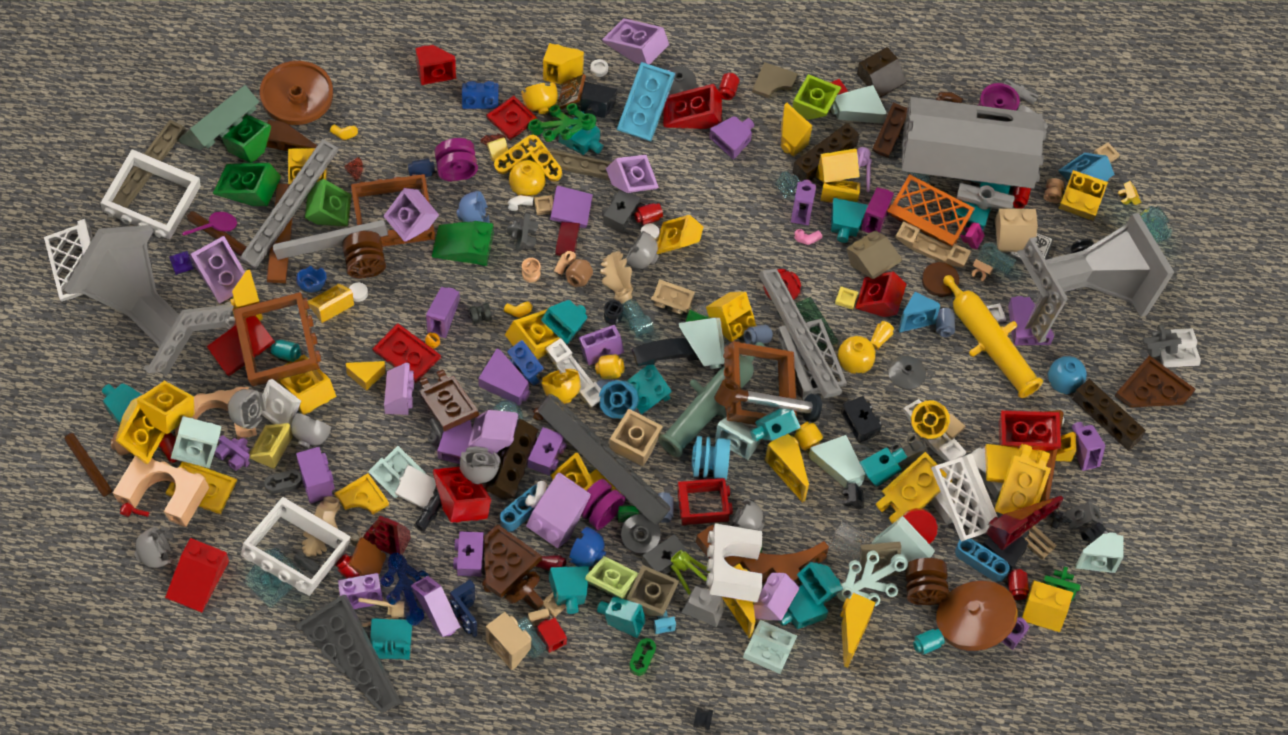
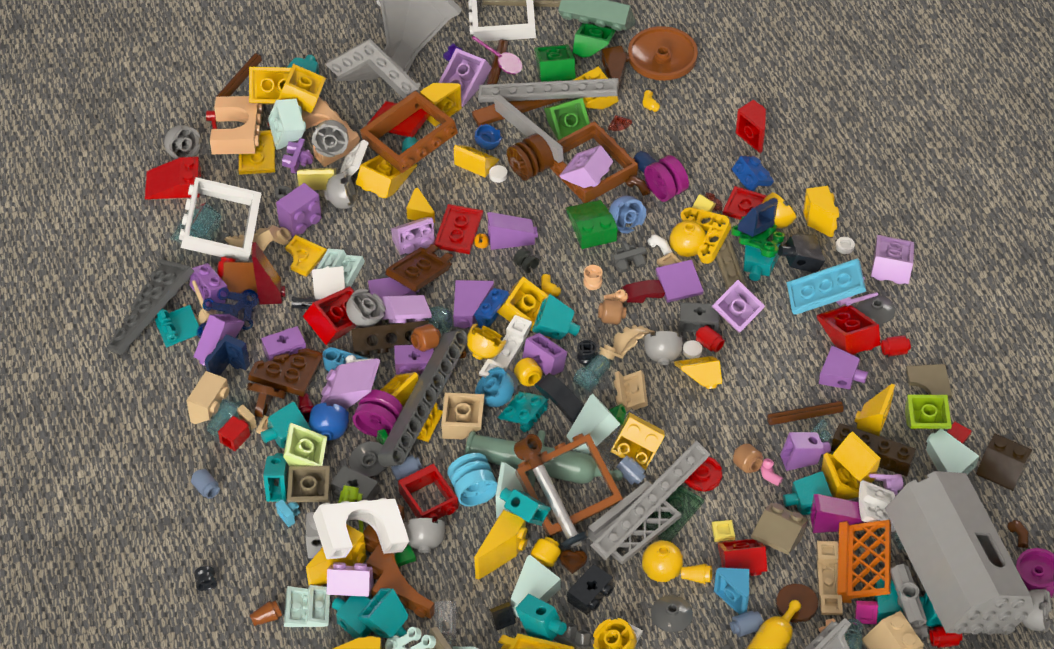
camera: 70 degrees right, 10 degrees down
(440, 184) = (642, 186): none -> reddish brown arm
(540, 428) = (425, 337): none -> dark orange head
(550, 111) = (759, 218): none -> dark blue tile
(571, 91) = (802, 231): piece -> none
(596, 681) = (205, 483): none -> sand blue brick
(638, 654) = (247, 510): green beam -> none
(760, 183) = (805, 413): none -> reddish brown axle
(763, 681) = (266, 613): none -> dark orange cone
(787, 245) = (748, 458): none -> medium nougat head
(824, 421) = (573, 560): none -> reddish brown tile
(878, 175) = (873, 502): none -> white slope

